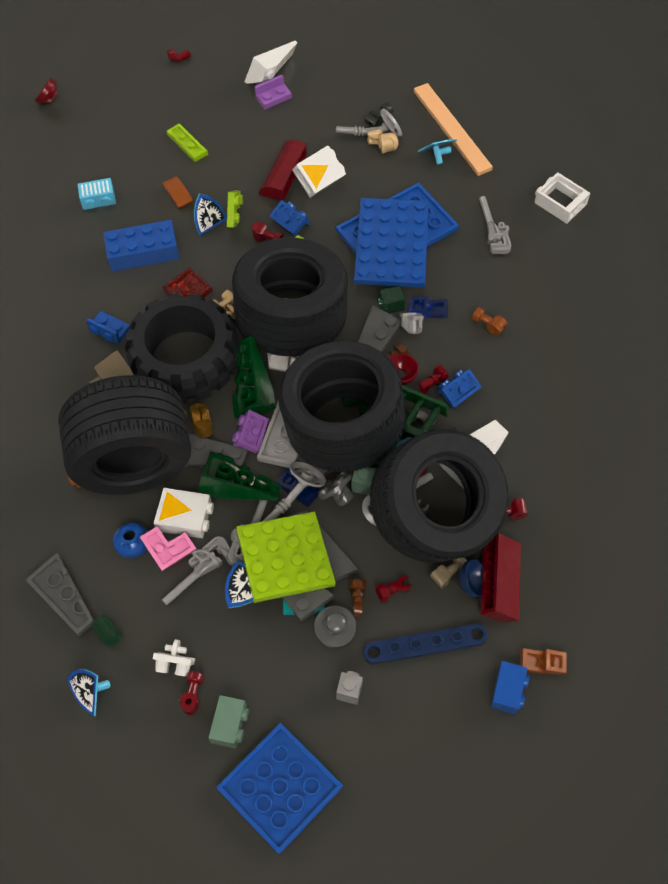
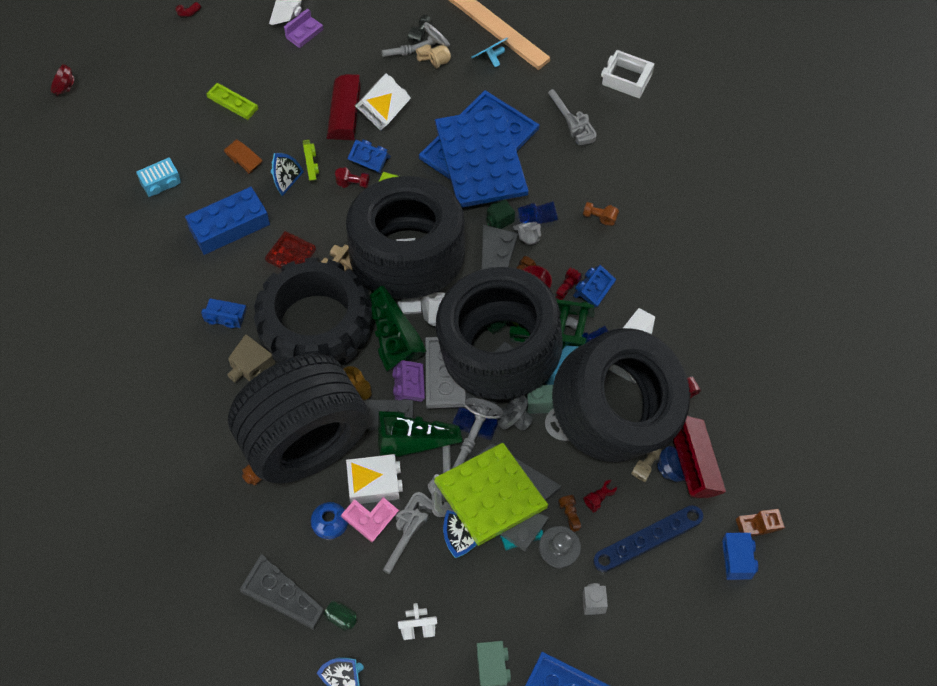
camera: 20 degrees left, 0 degrees up
(189, 700) = (447, 656): dark red leg -> none

